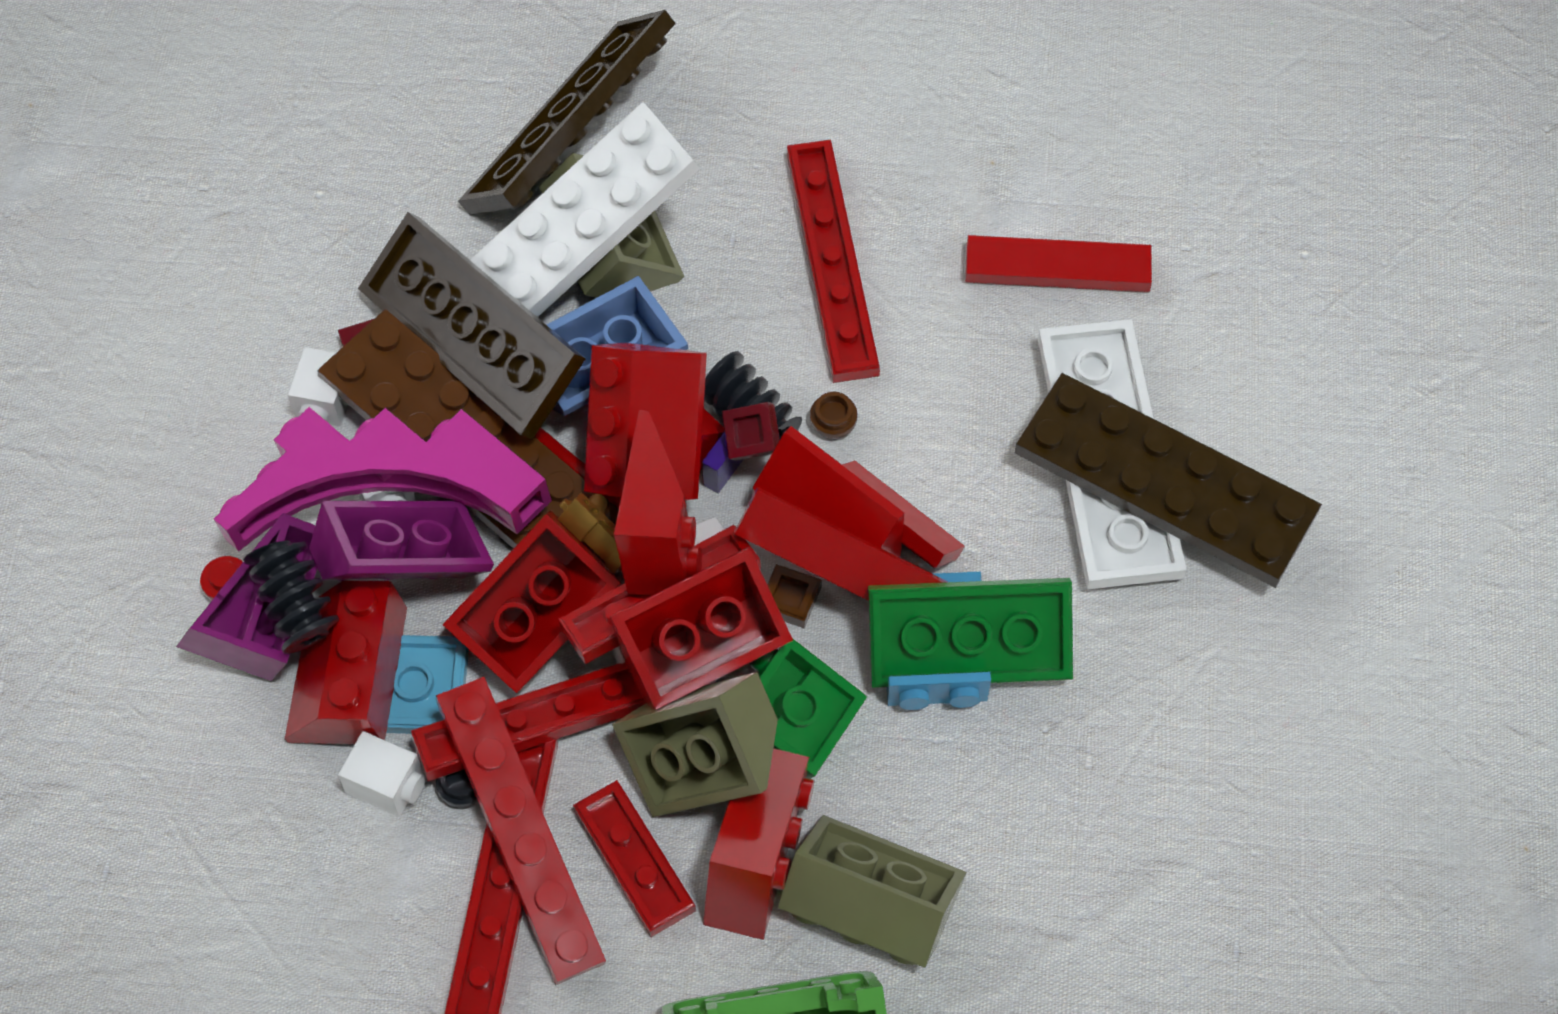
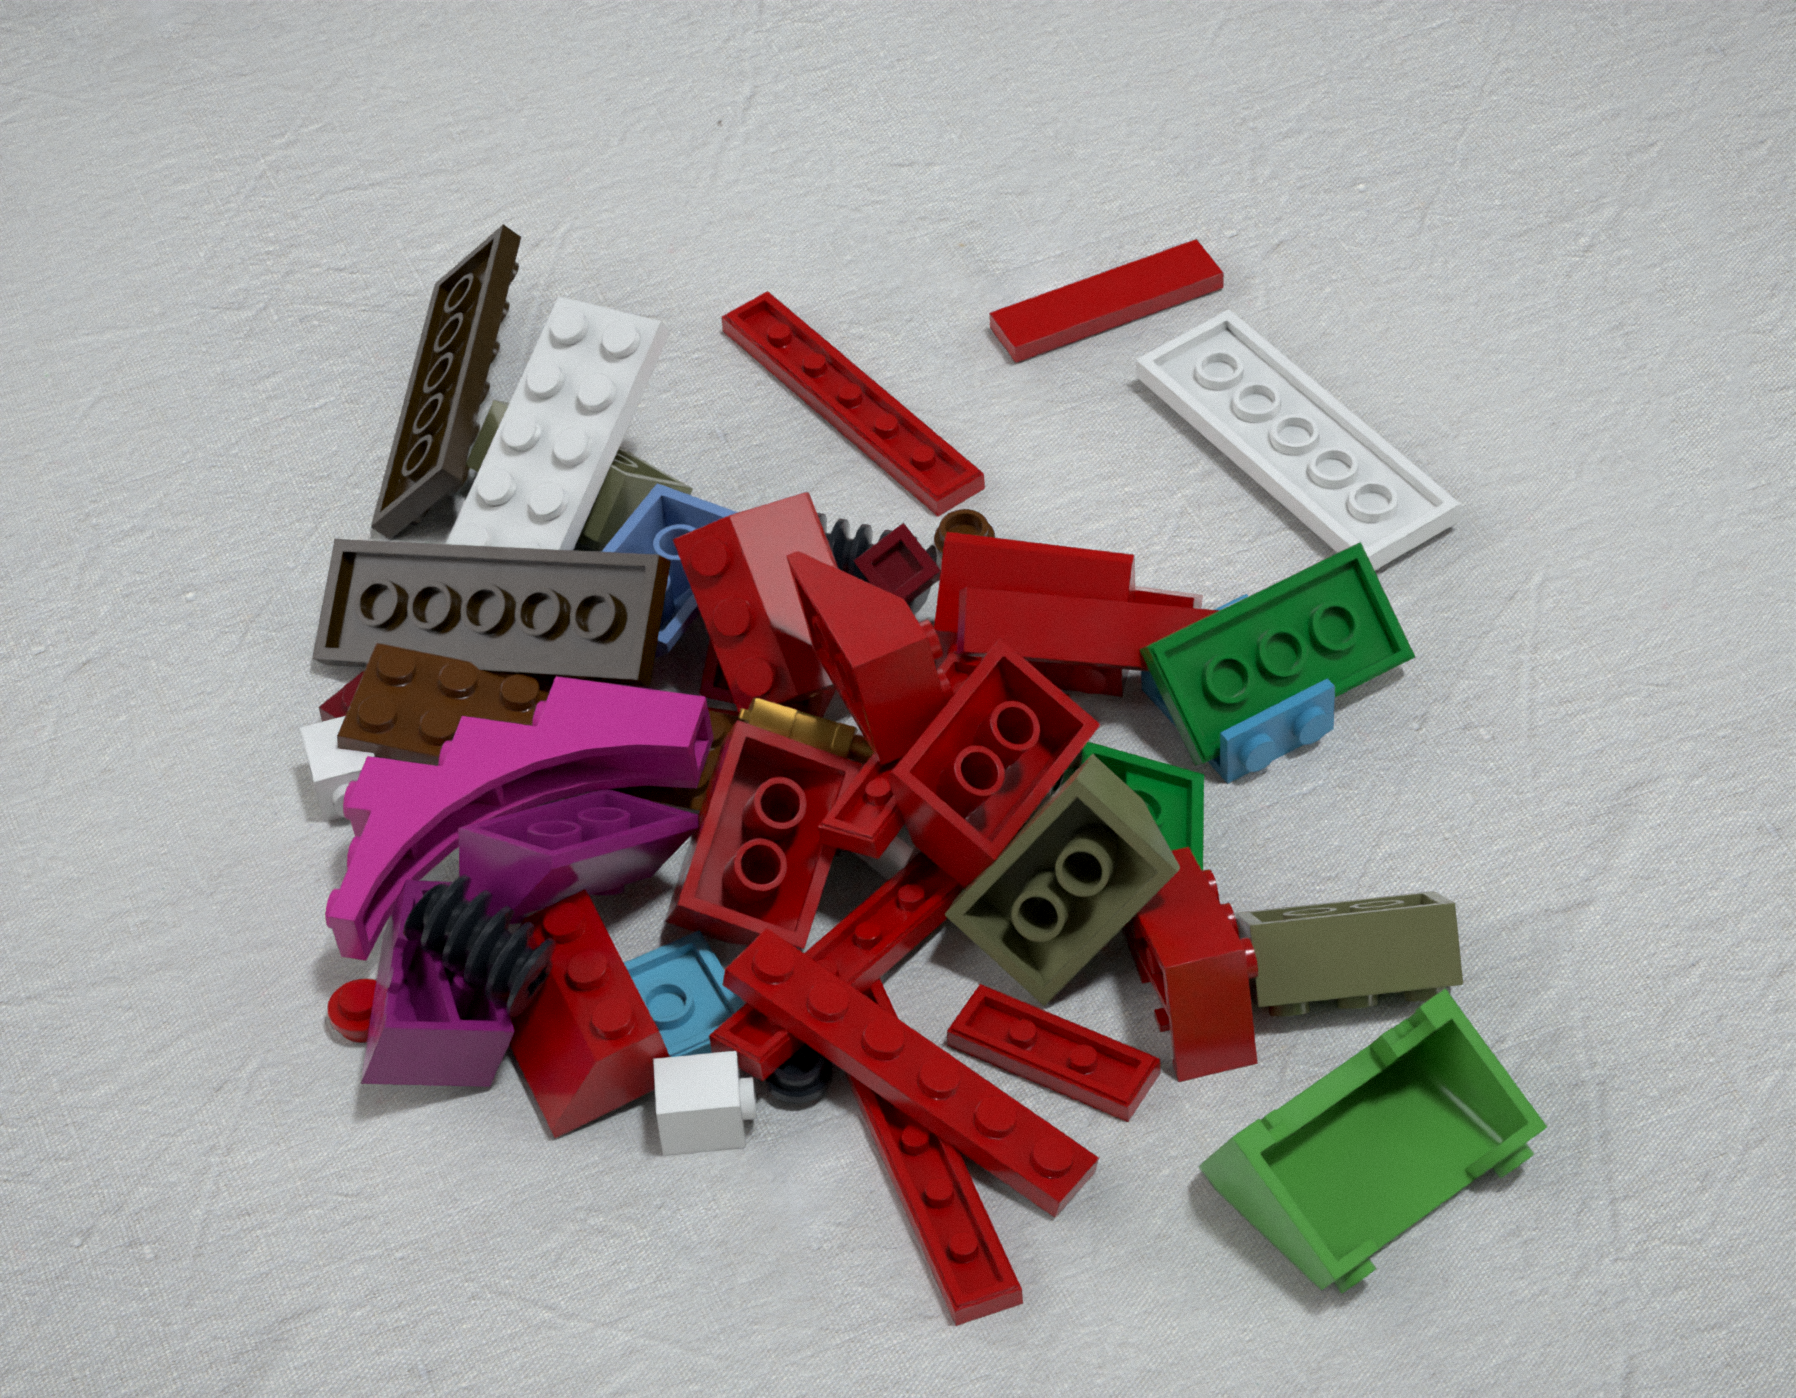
camera: 25 degrees left, 15 degrees down
(1168, 479) = (1380, 428): dark brown plate -> none

